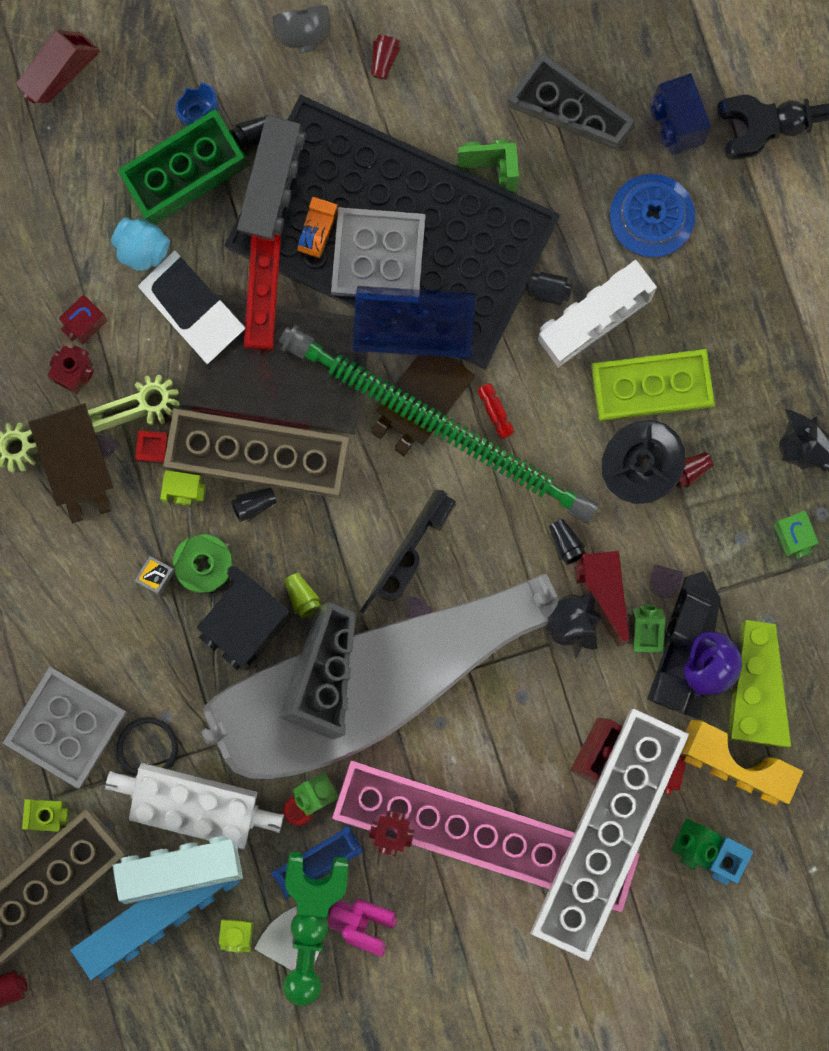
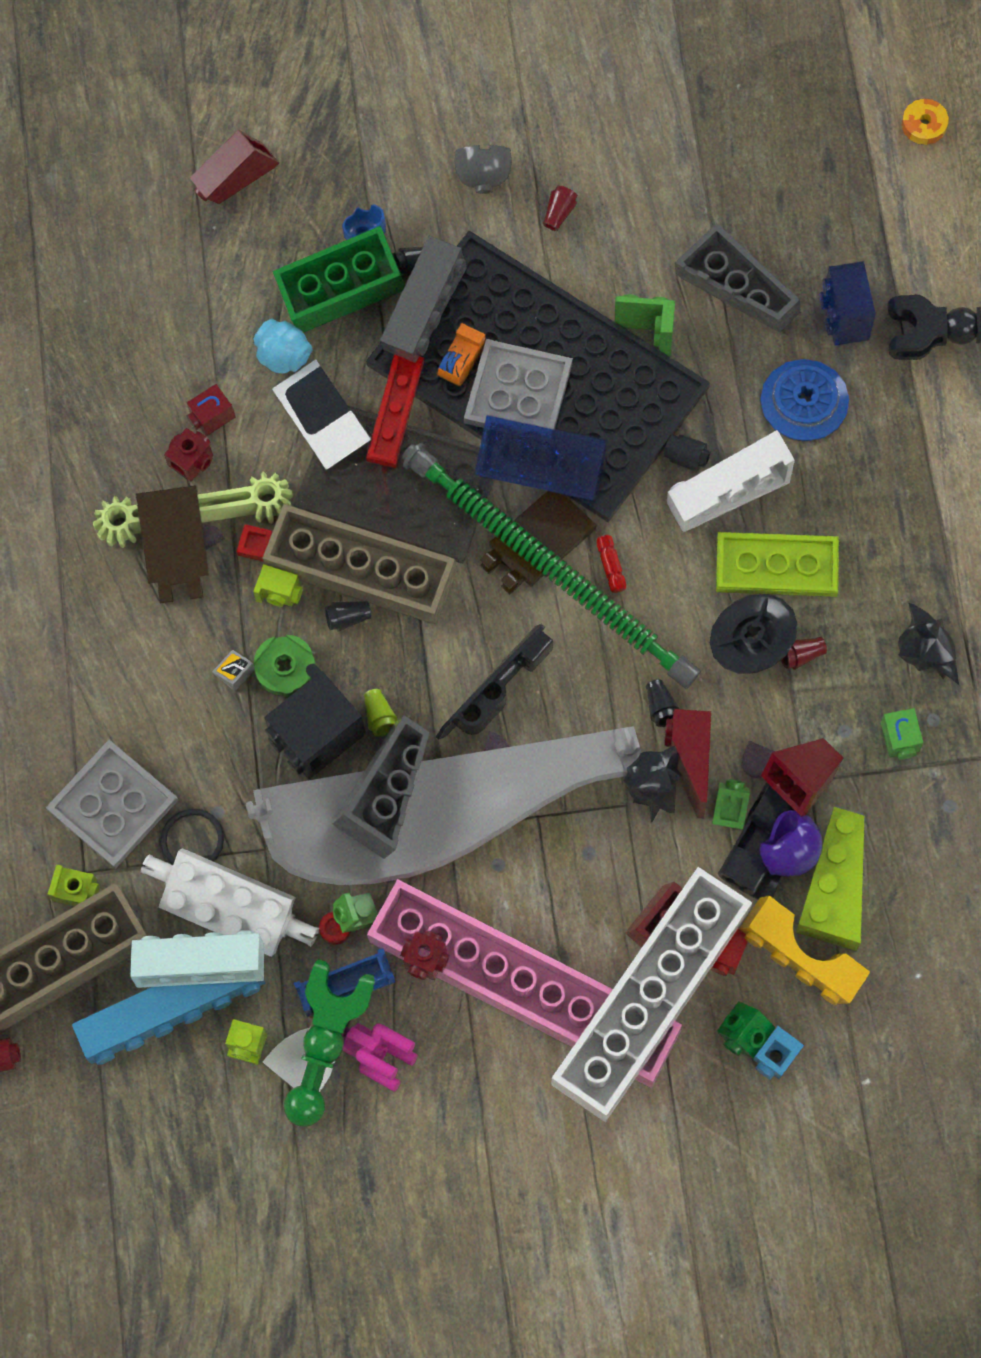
camera: 15 degrees right, 10 degrees down
(713, 594) = (802, 773): none -> dark red slope

